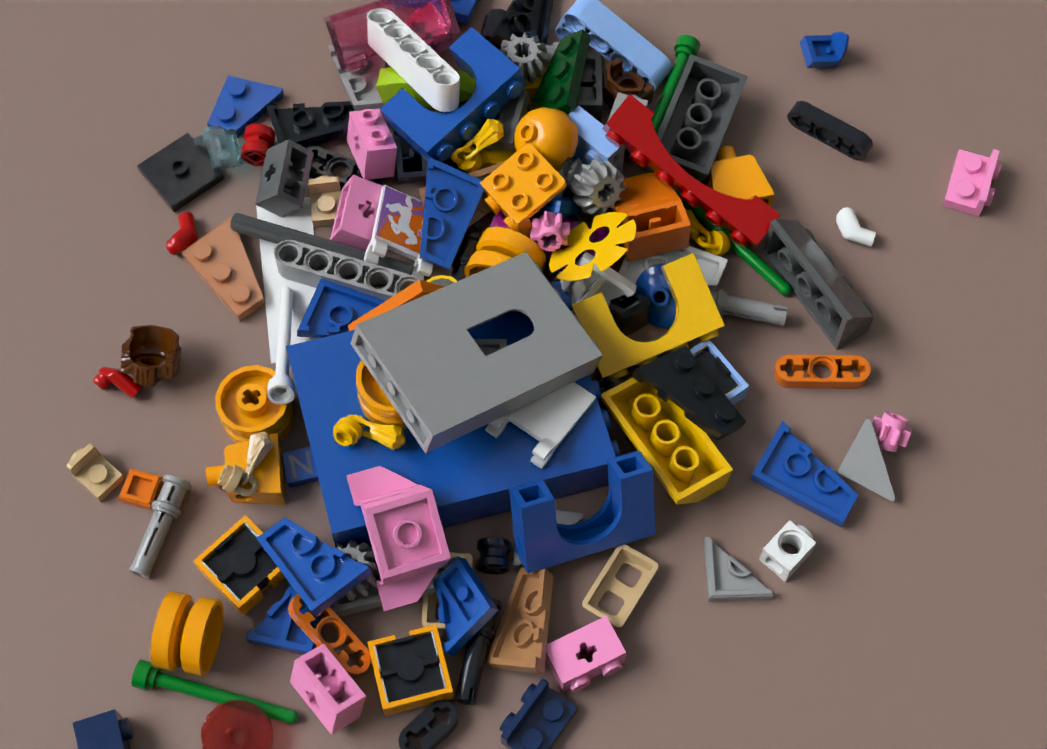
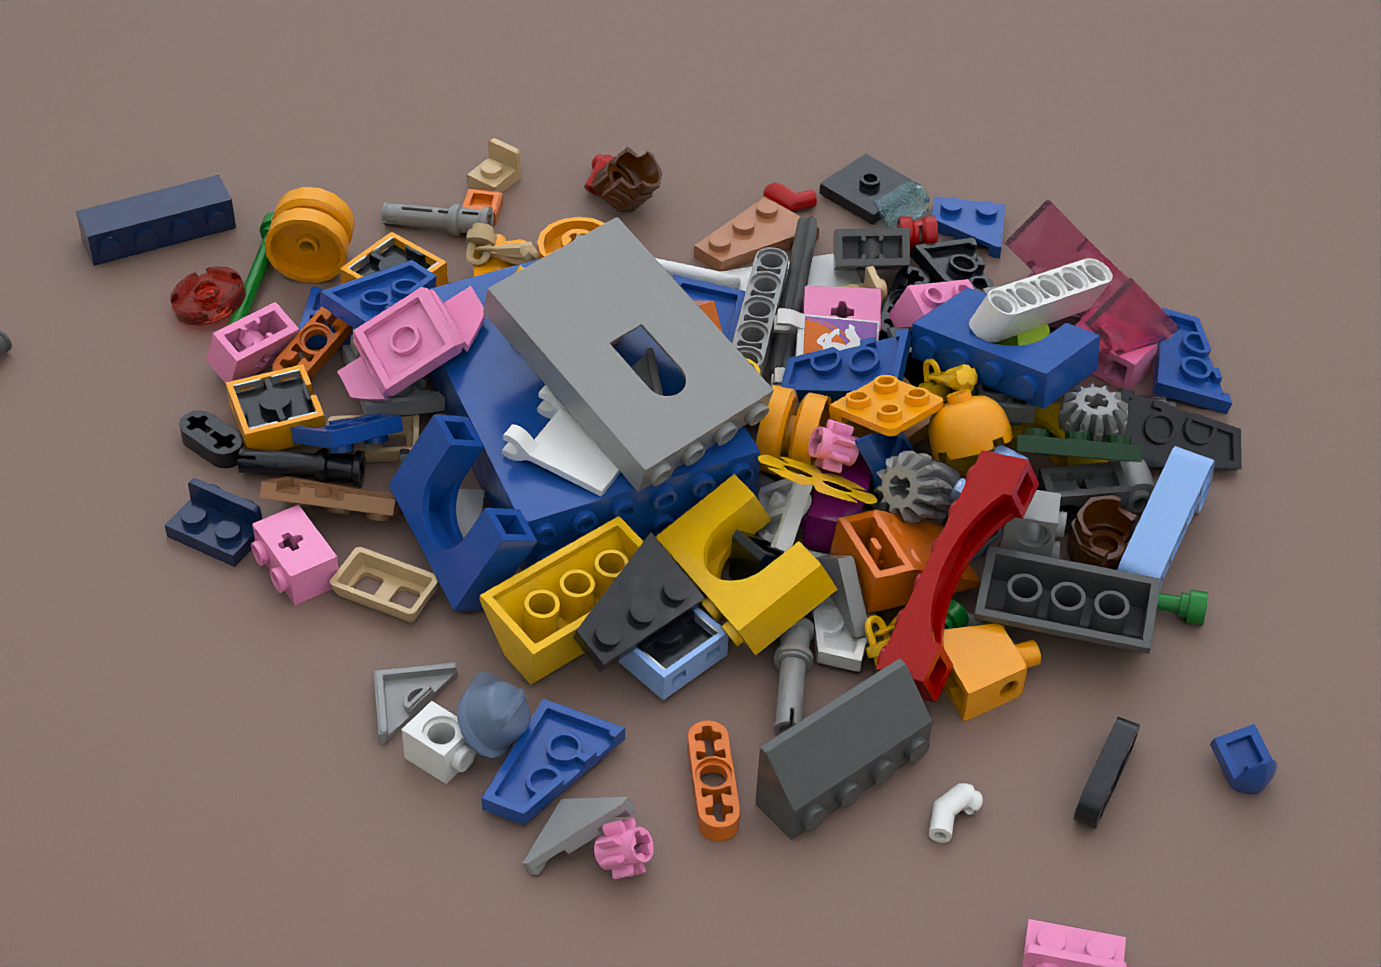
camera: 80 degrees right, 20 degrees down
(665, 252) = (849, 595): none -> light grey tile
(773, 501) = (492, 715): none -> sand blue piece

